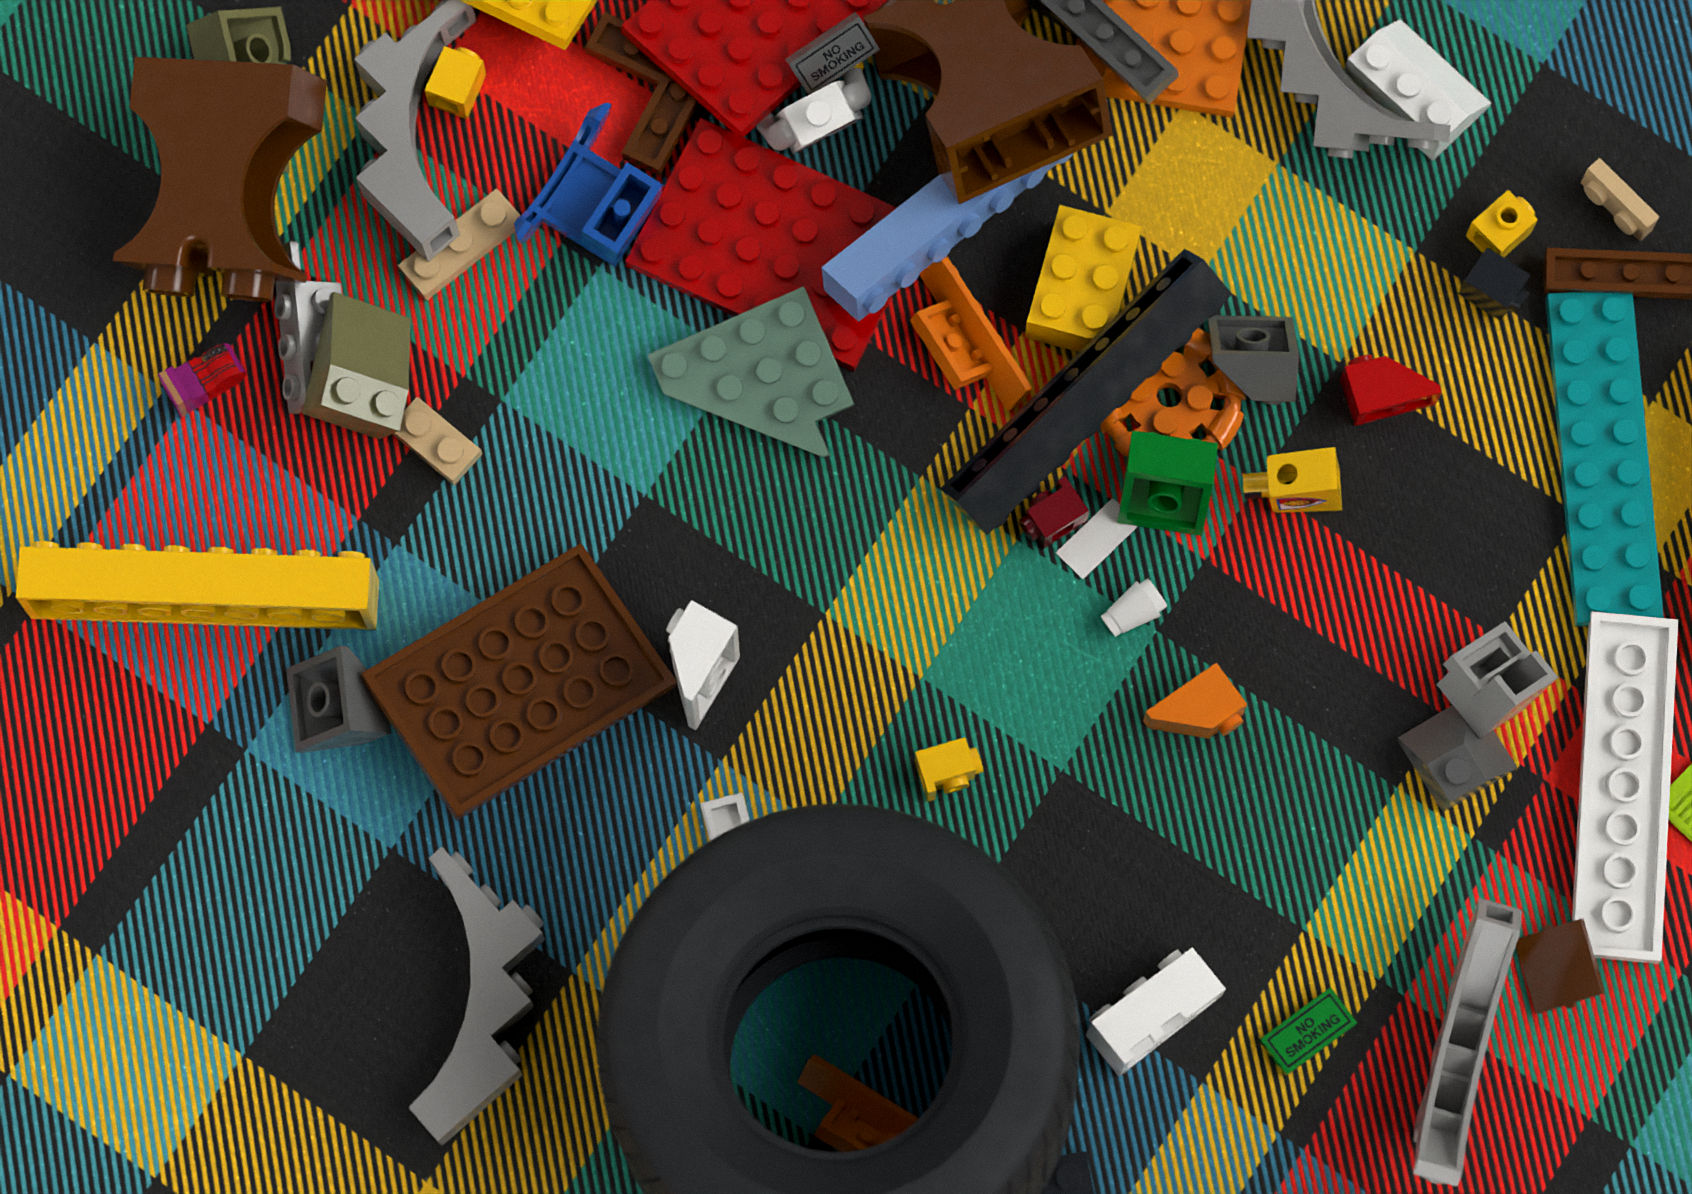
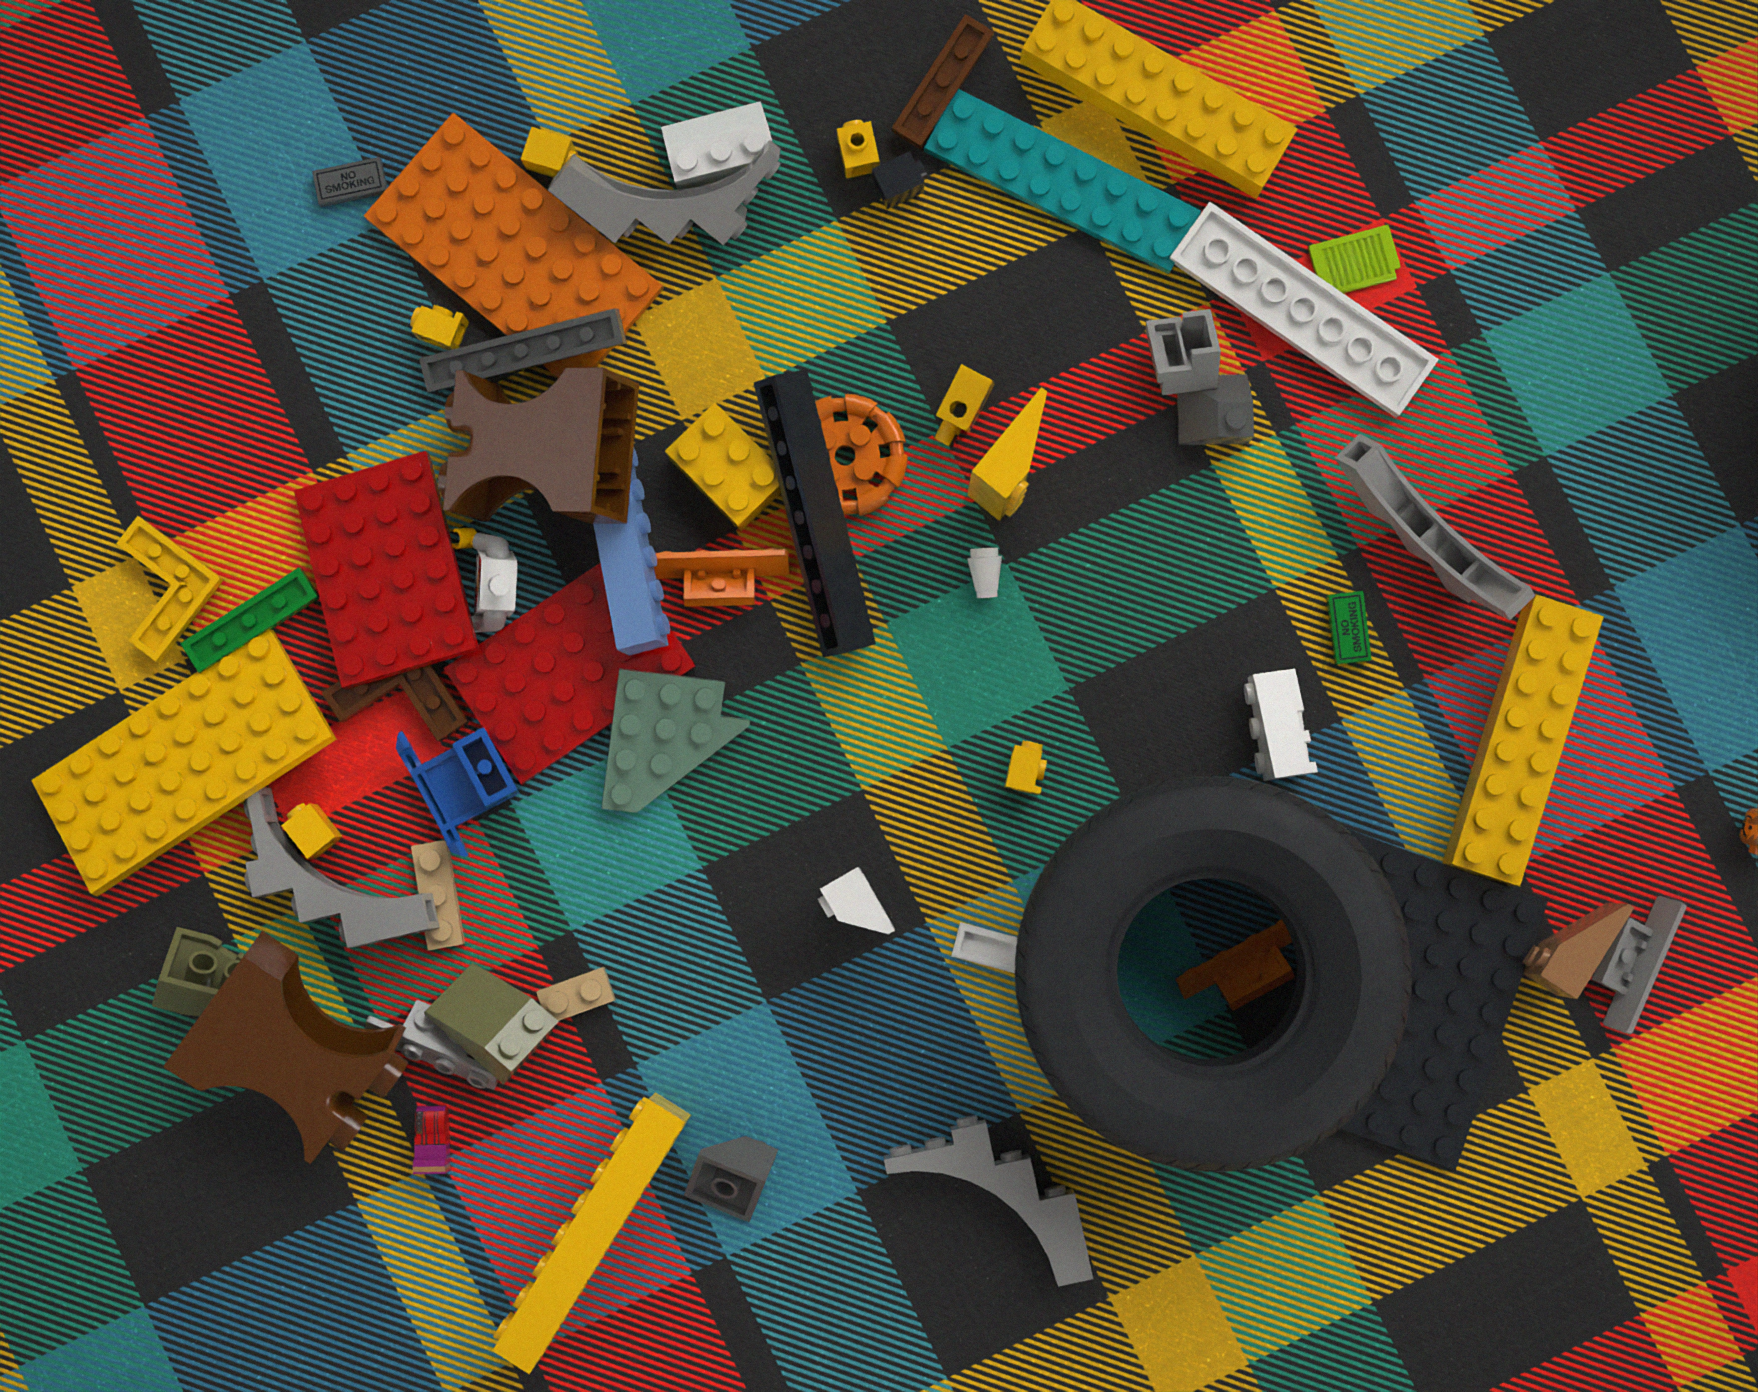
camera: 55 degrees left, 10 degrees up
(518, 681) = (792, 1037): reddish brown plate -> none
(832, 54) = (456, 548): dark grey tile -> none
(1054, 514) = (885, 588): dark red brick -> none
(1095, 540) = (917, 566): white sticker -> none
(1167, 482) = (911, 494): green slope -> none
(1199, 707) = (1083, 564): orange slope -> none
(1257, 355) = (853, 375): dark grey slope -> none
(1267, 552) = (1001, 475): none -> yellow slope
(1384, 389) = (927, 303): red slope -> none
(1559, 966) = (1404, 429): reddish brown piece -> none
(1629, 210) = (898, 53): tan plate -> none

